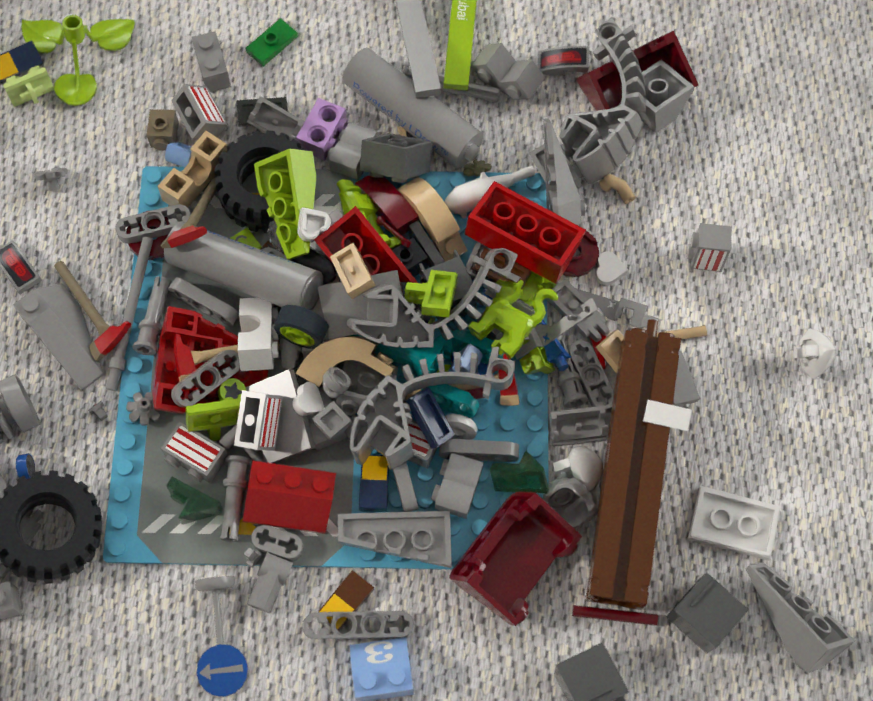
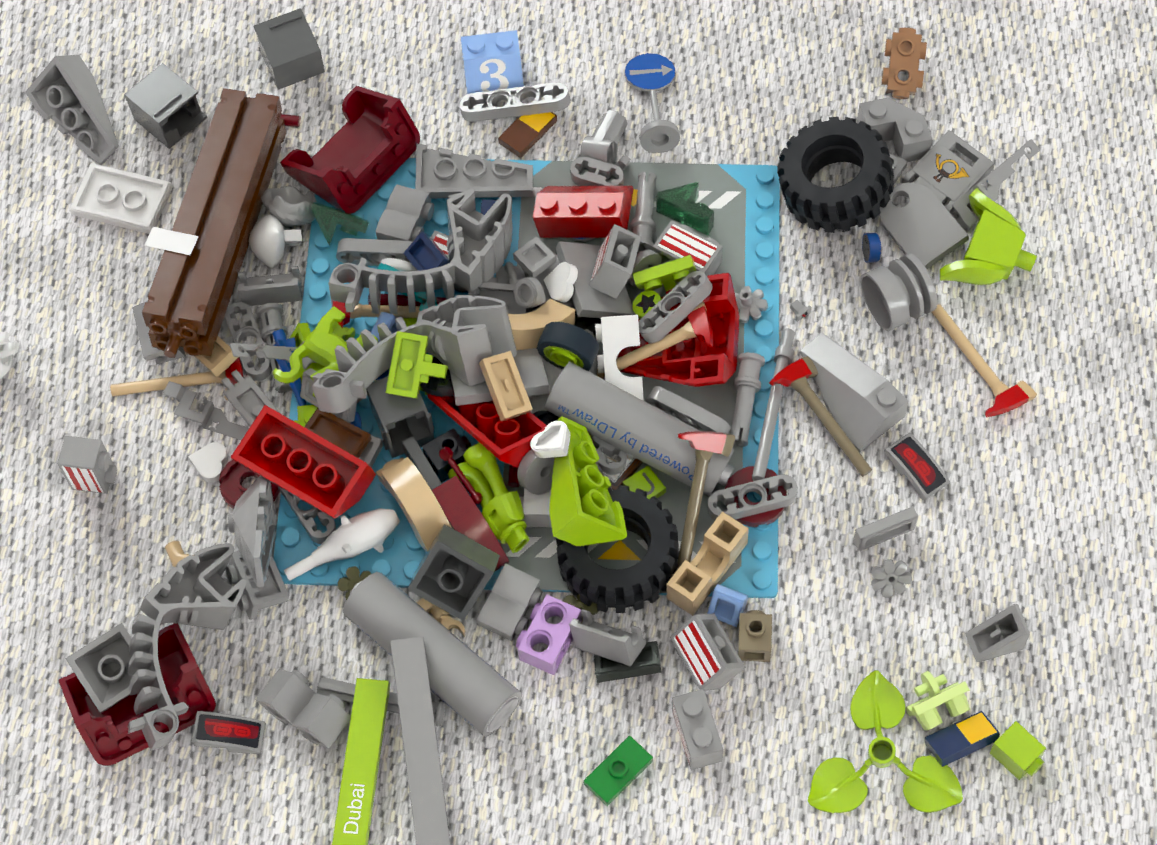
camera: 175 degrees left, 5 degrees down
(49, 212) = (885, 529): none -> light grey tile

